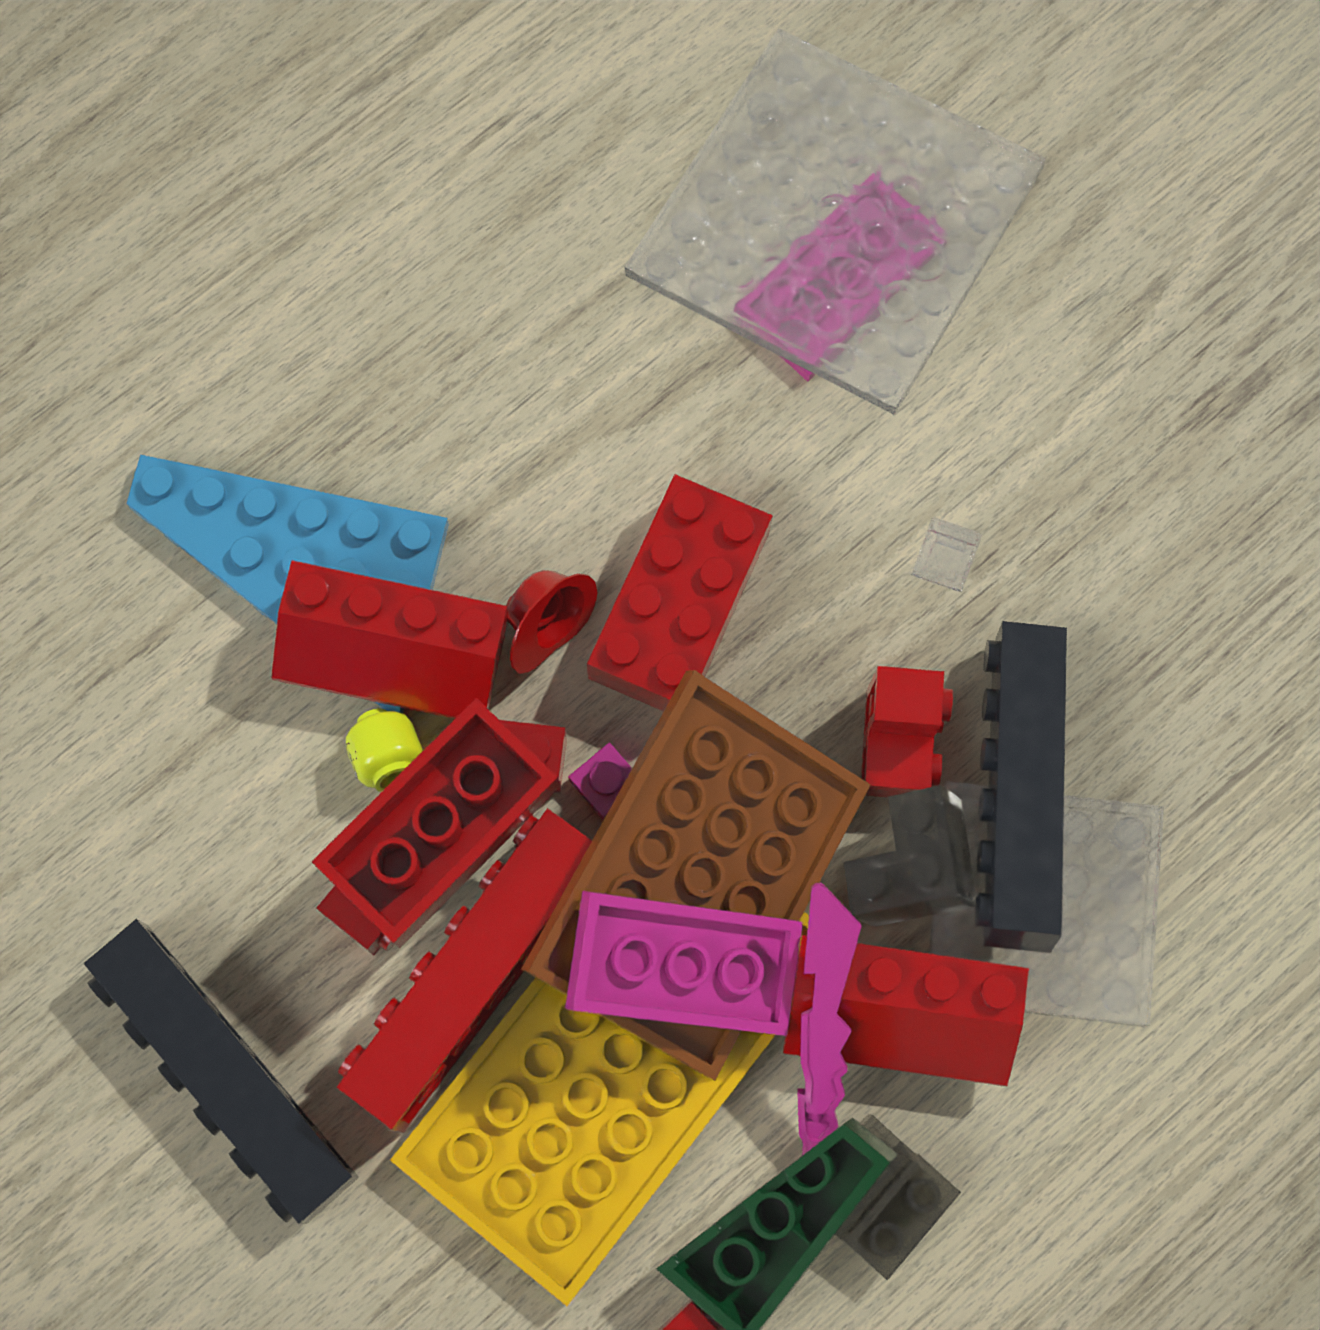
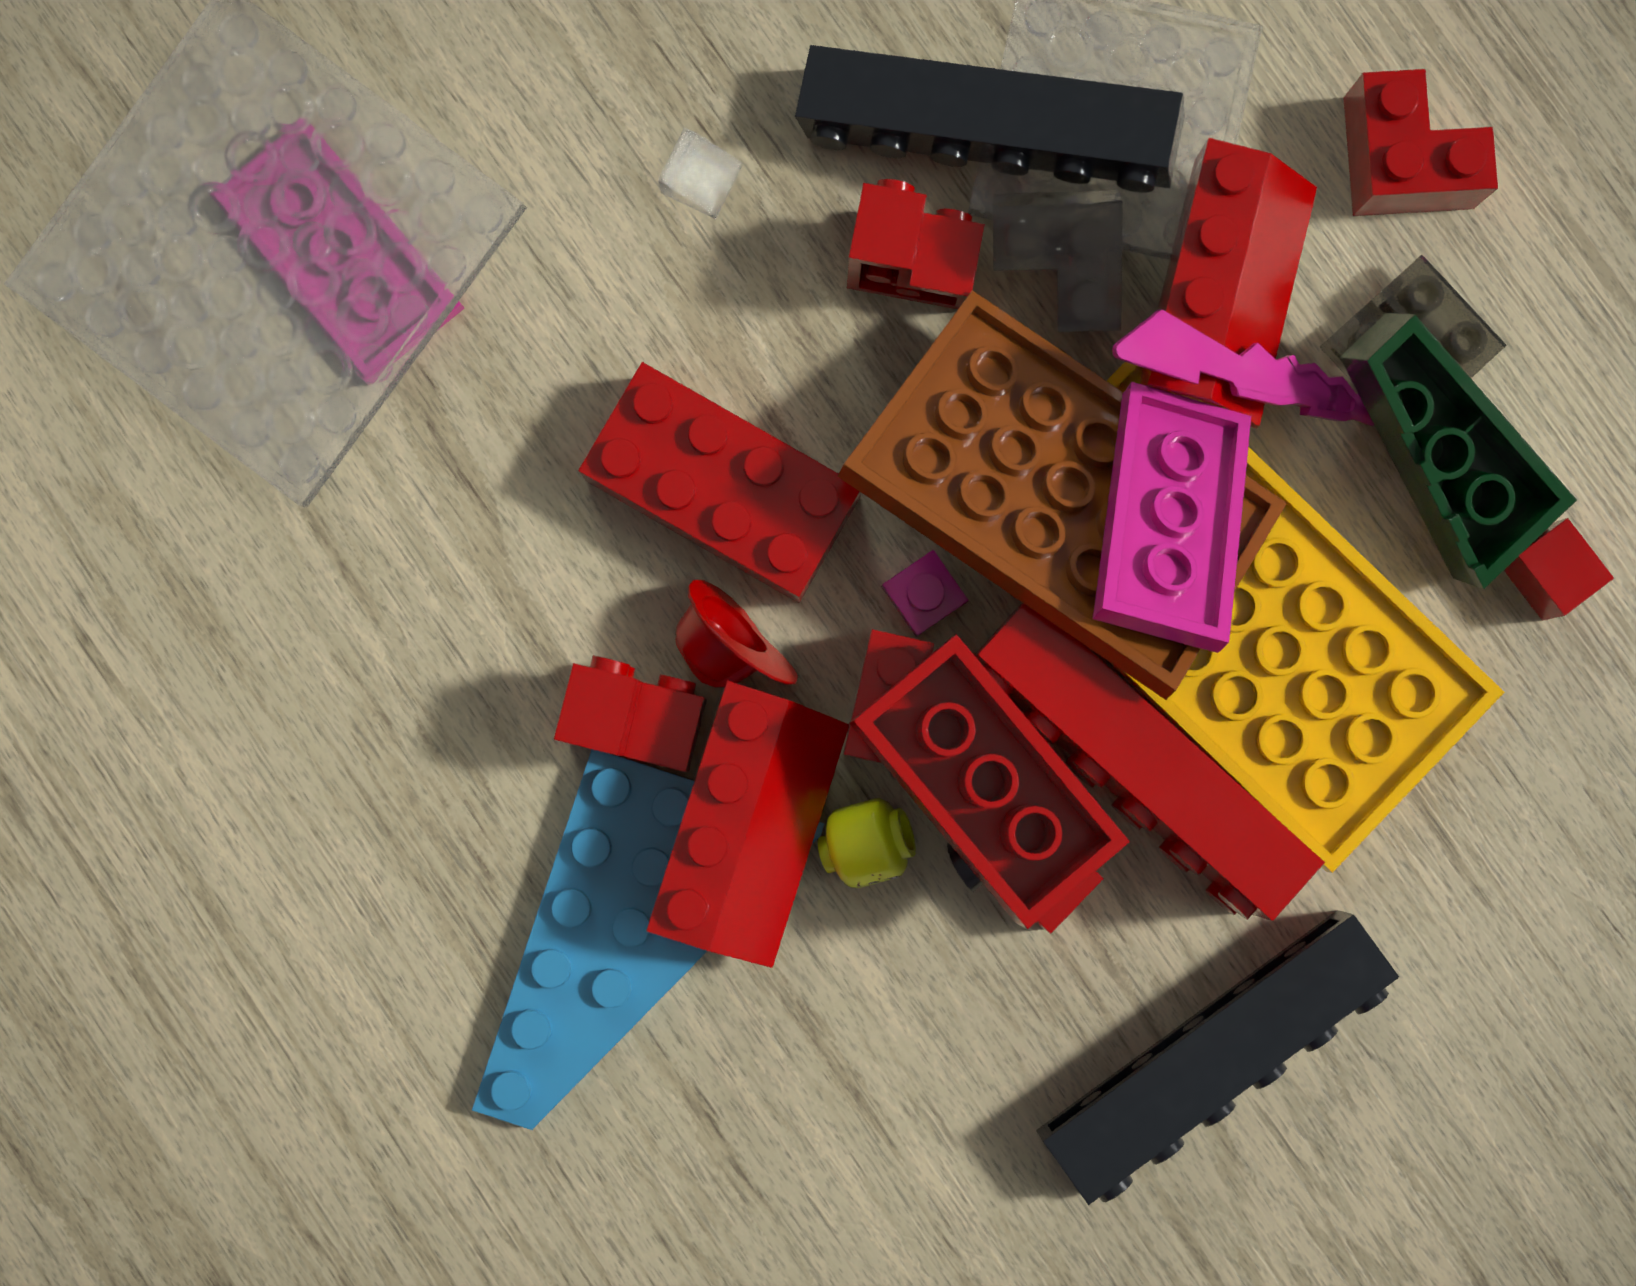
camera: 85 degrees left, 10 degrees up
(475, 528) = (631, 718): none -> red brick
(1039, 1173) = (1401, 162): none -> red brick

